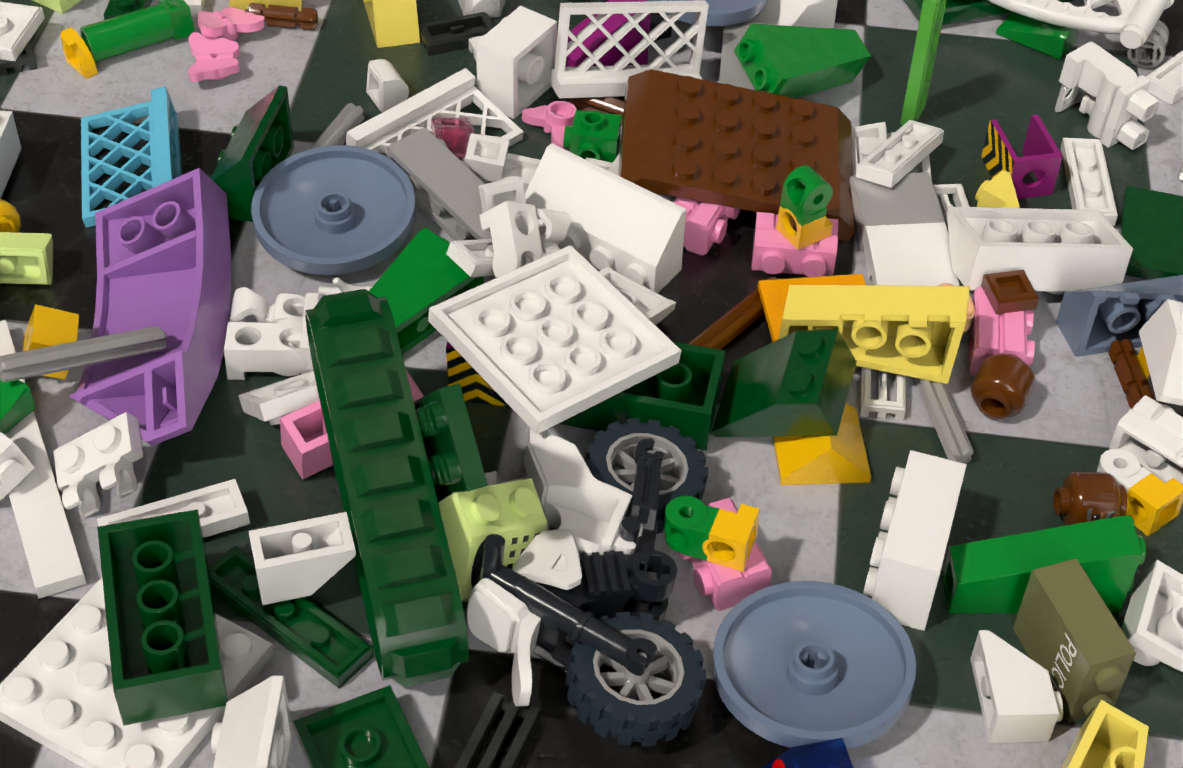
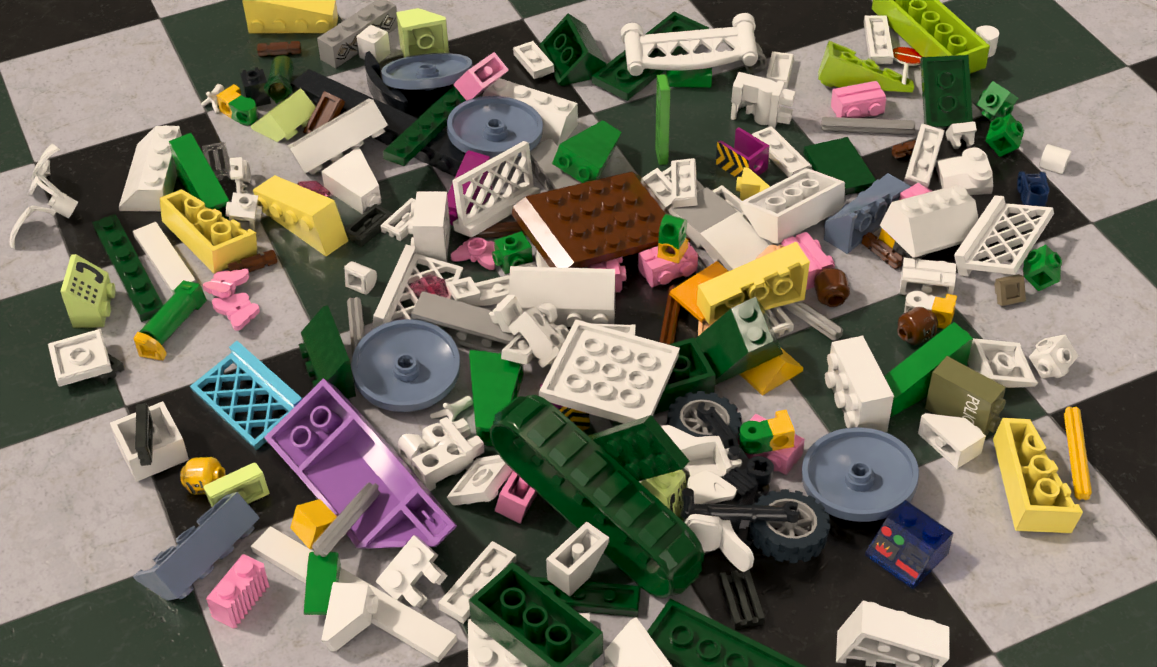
camera: 30 degrees left, 0 degrees up
(1009, 291) = (802, 233): reddish brown tile -> none

